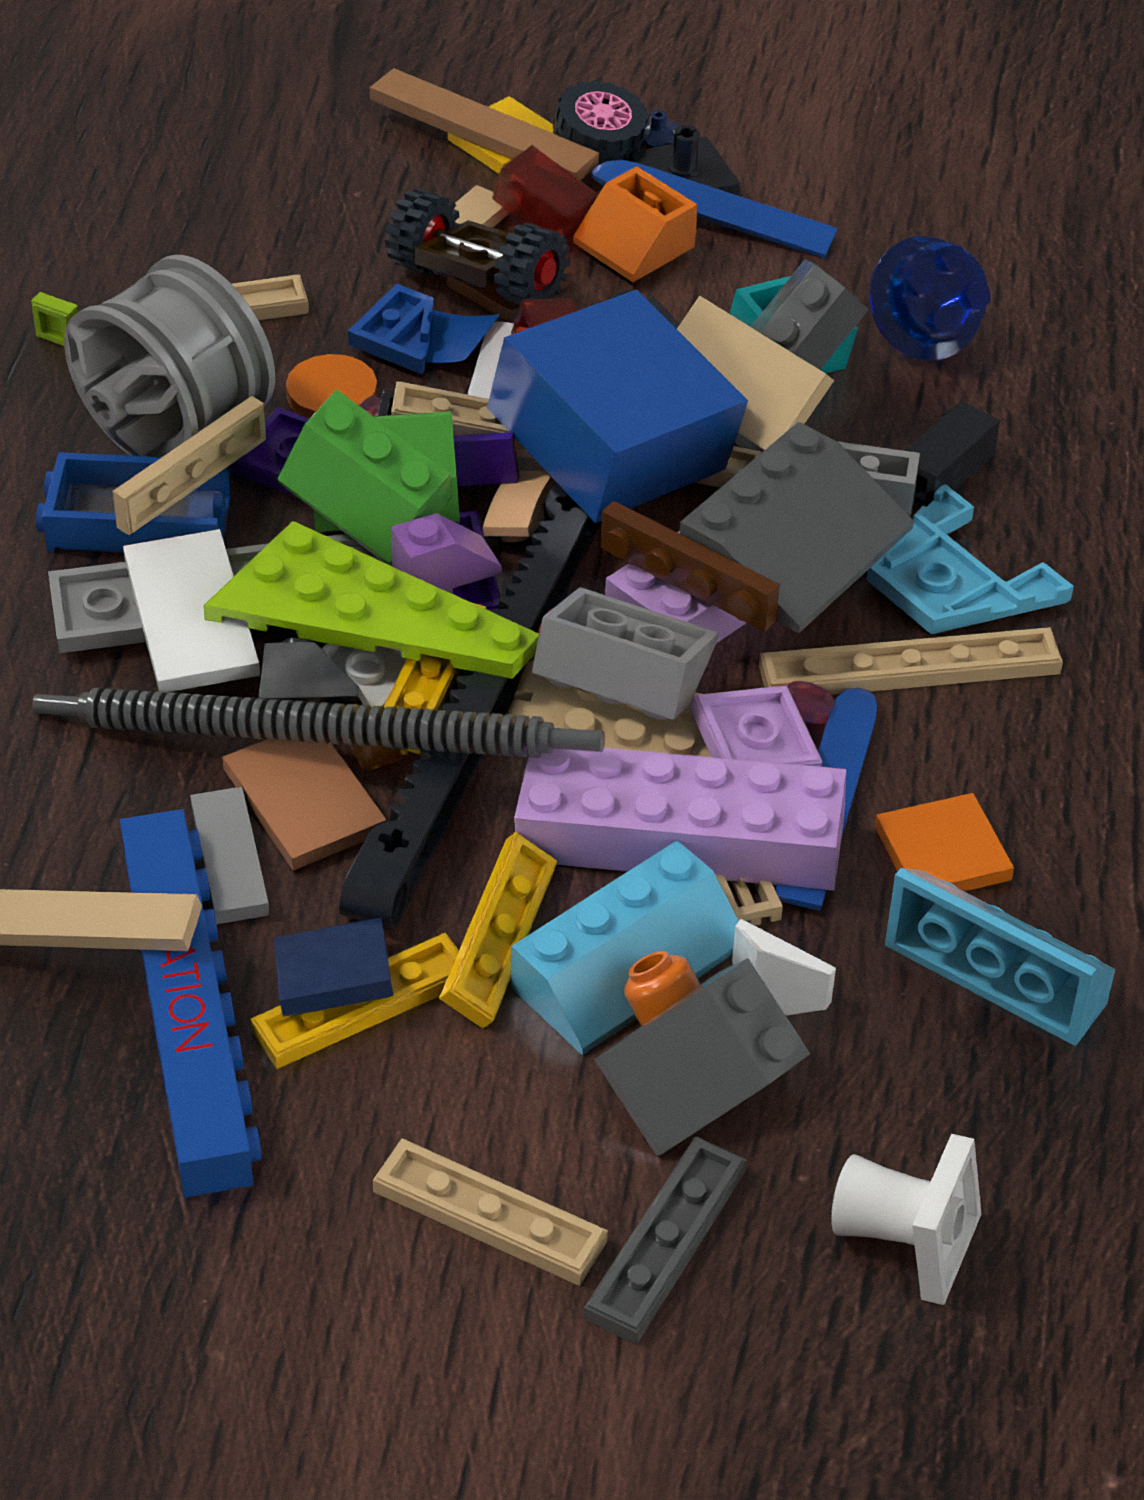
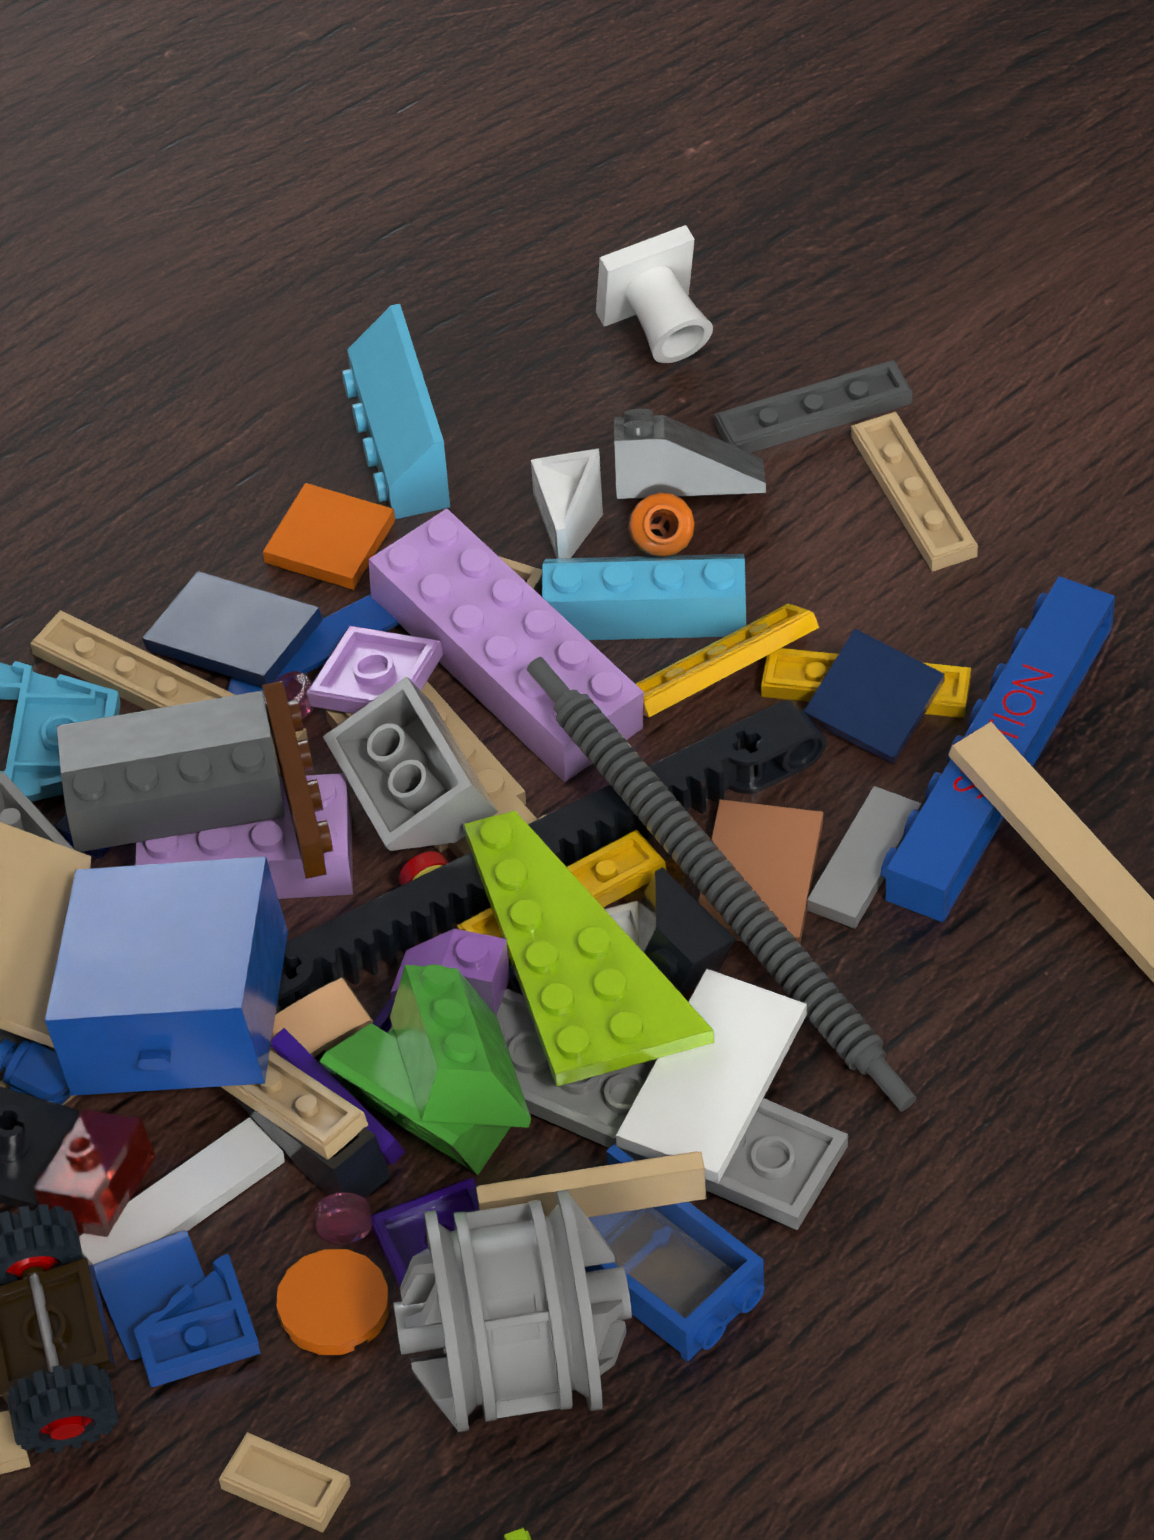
camera: 135 degrees left, 5 degrees up
(914, 718) = (232, 629): none -> tile

